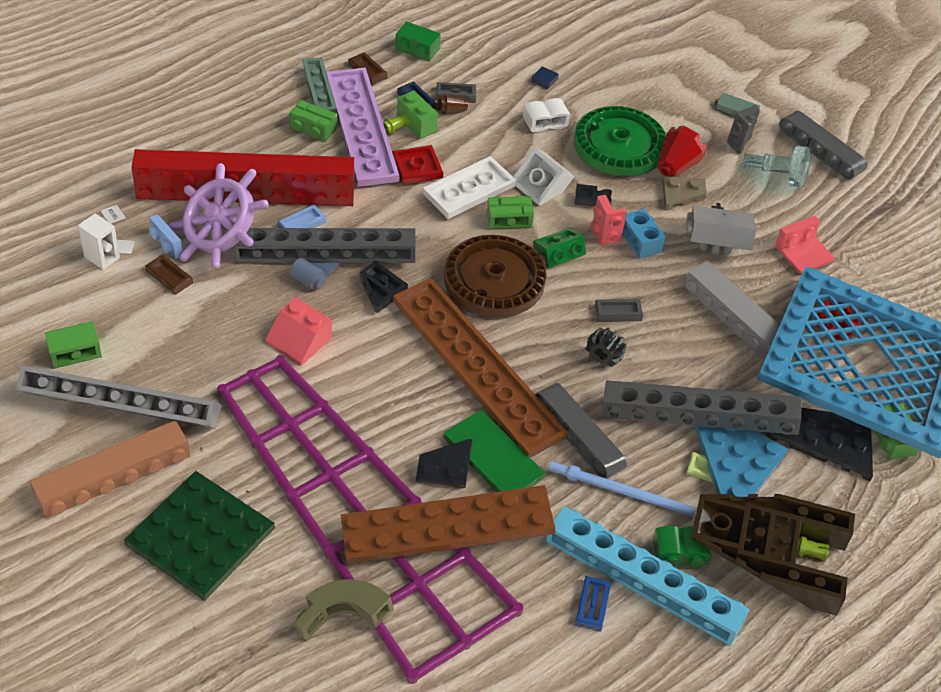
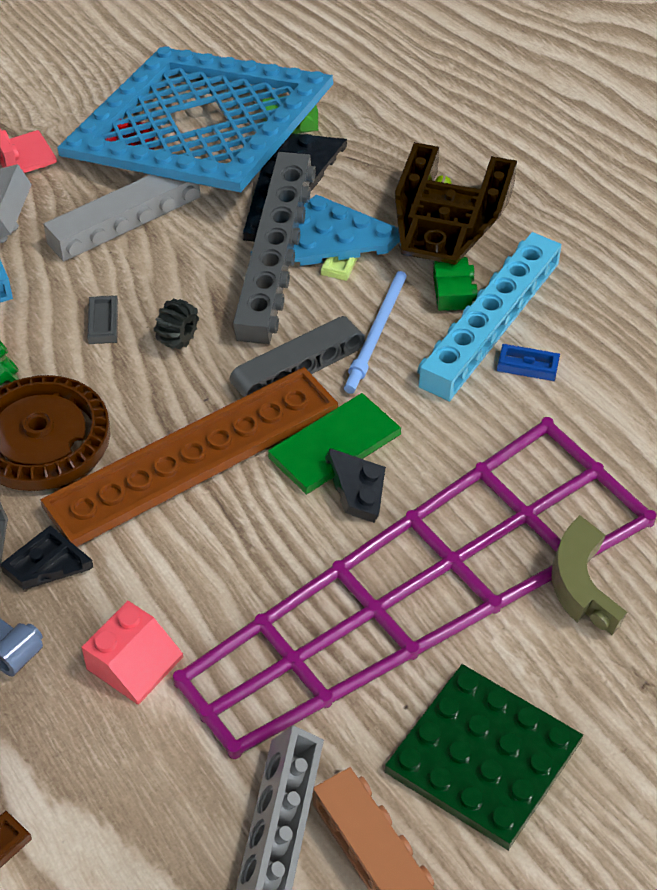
camera: 85 degrees left, 0 degrees up
(447, 524) = (457, 481): dark orange plate -> none

